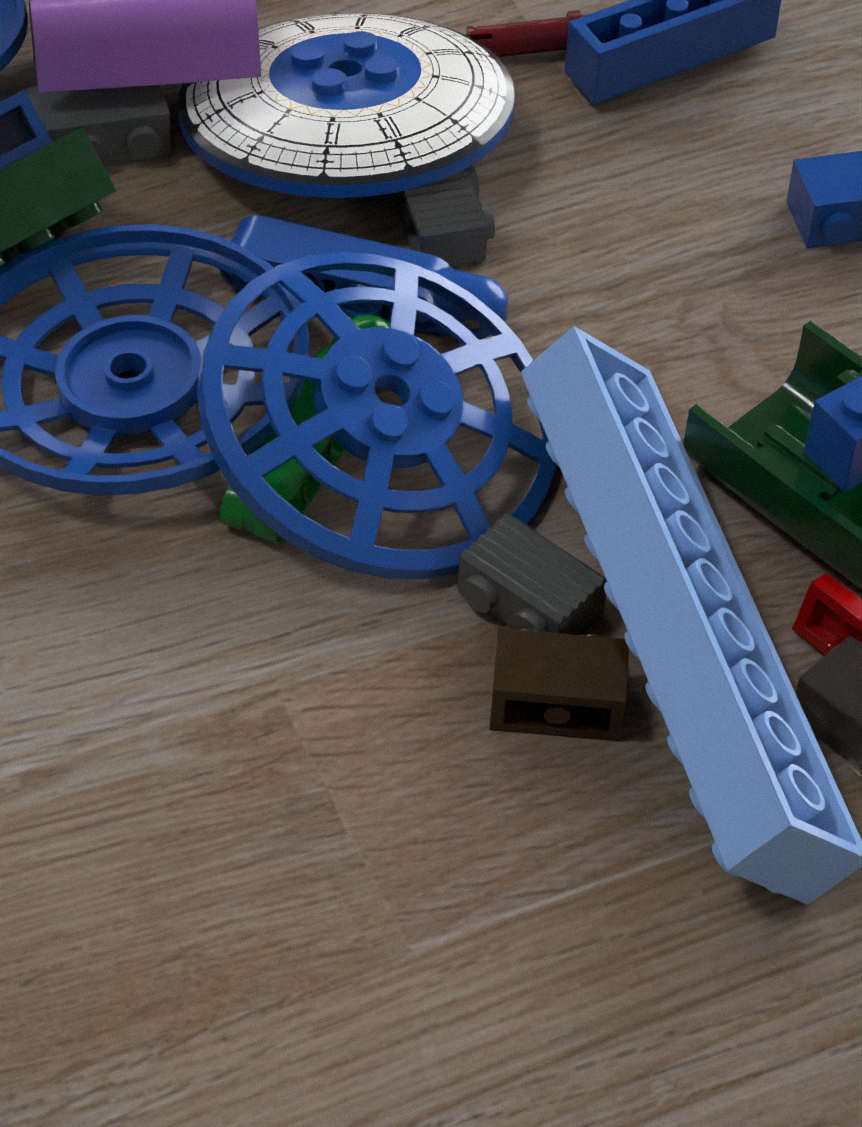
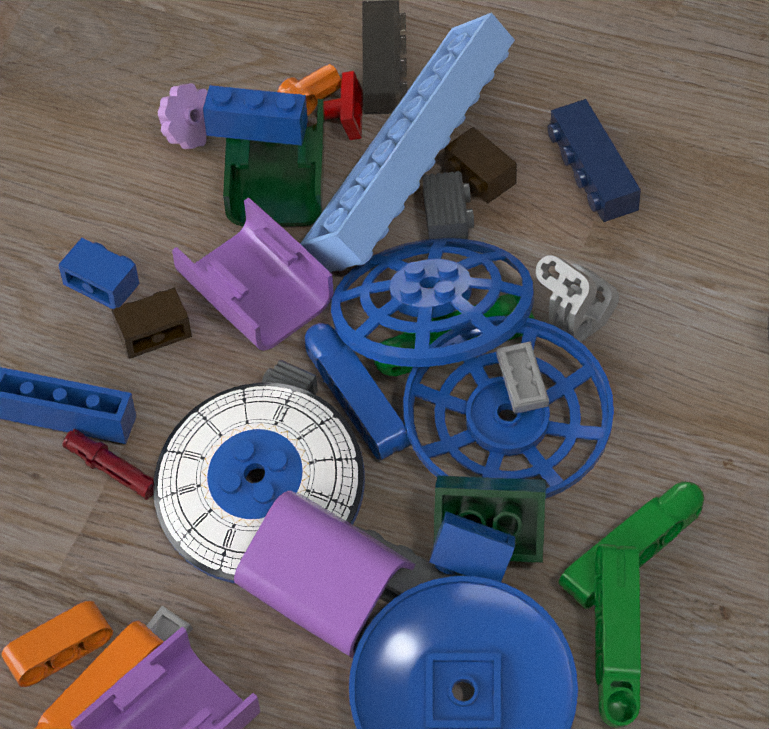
camera: 130 degrees left, 5 degrees up
(132, 365) = (522, 377): none -> light grey plate
(169, 561) = (574, 306): none -> light grey piece
(398, 819) = (594, 160): none -> dark blue brick
(662, 288) = (261, 280): none -> medium lavender piece
(712, 188) = (151, 322): none -> dark brown brick

